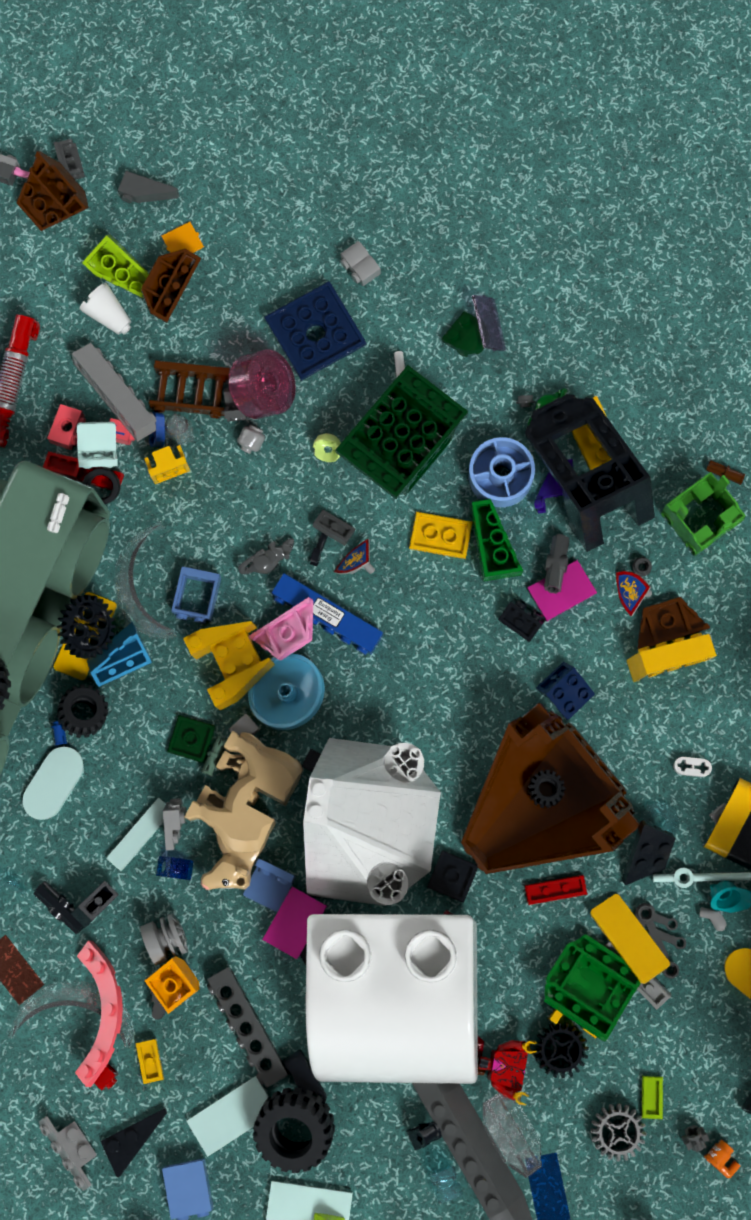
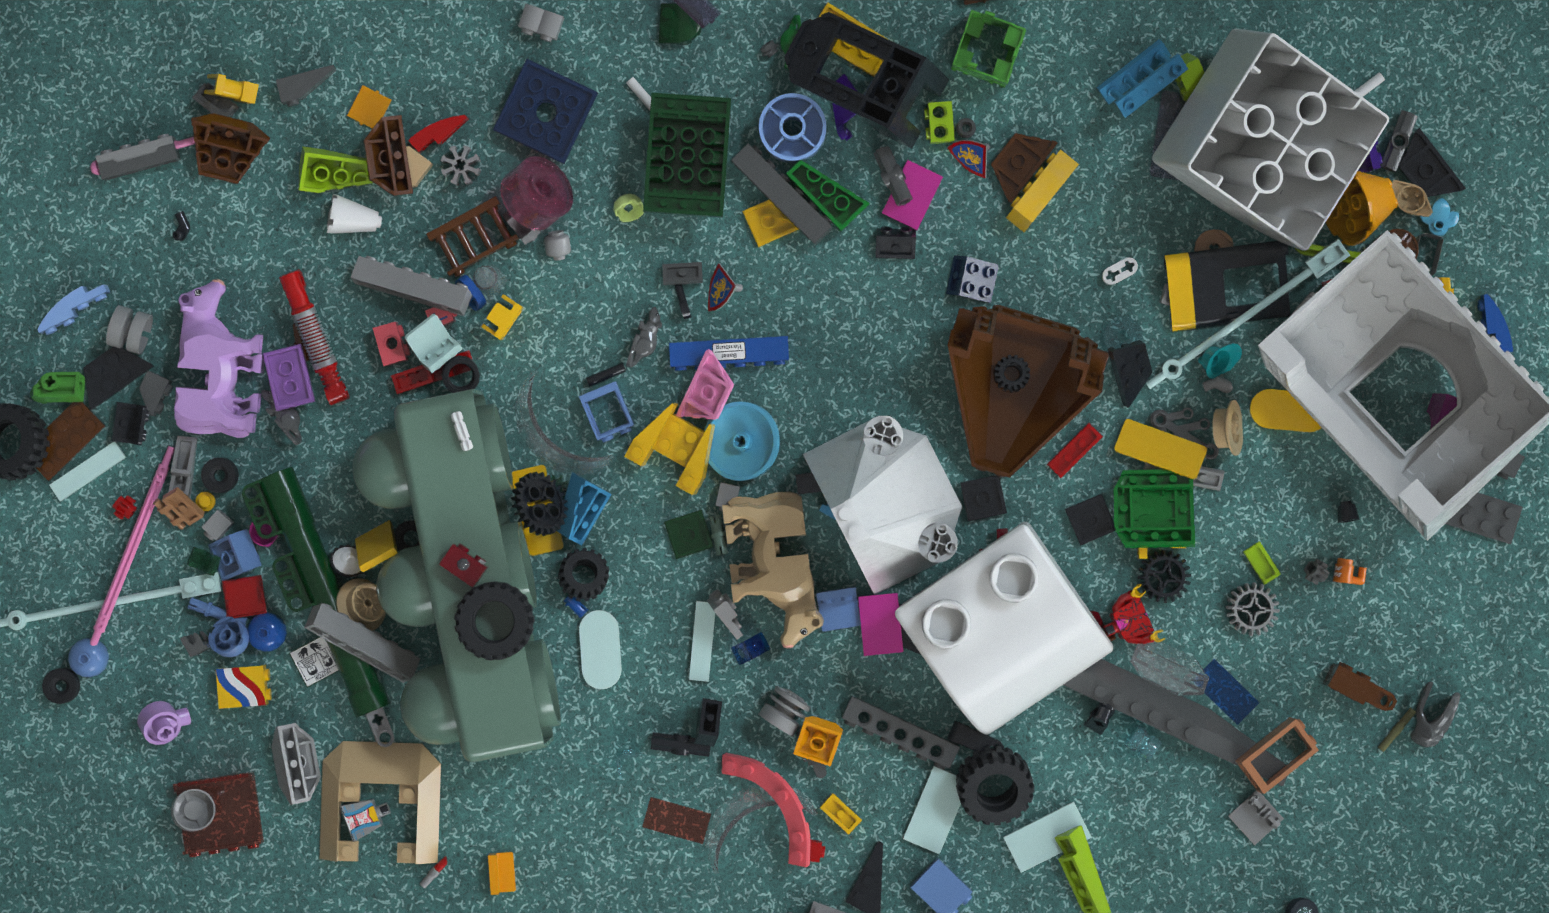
camera: 40 degrees left, 10 degrees up
(93, 164) = (237, 90): none -> yellow piece
(185, 308) = (418, 166): none -> tan slope
(217, 566) = (606, 374): none -> black piece
(221, 292) = (438, 132): none -> red slope
(224, 334) = (458, 172): none -> light grey gear
(457, 519) = (781, 194): none -> dark grey brick
(530, 957) = (1090, 519): none -> black plate
(626, 549) = (944, 122): none -> lime brick
(699, 960) = (1228, 428): none -> tan piece

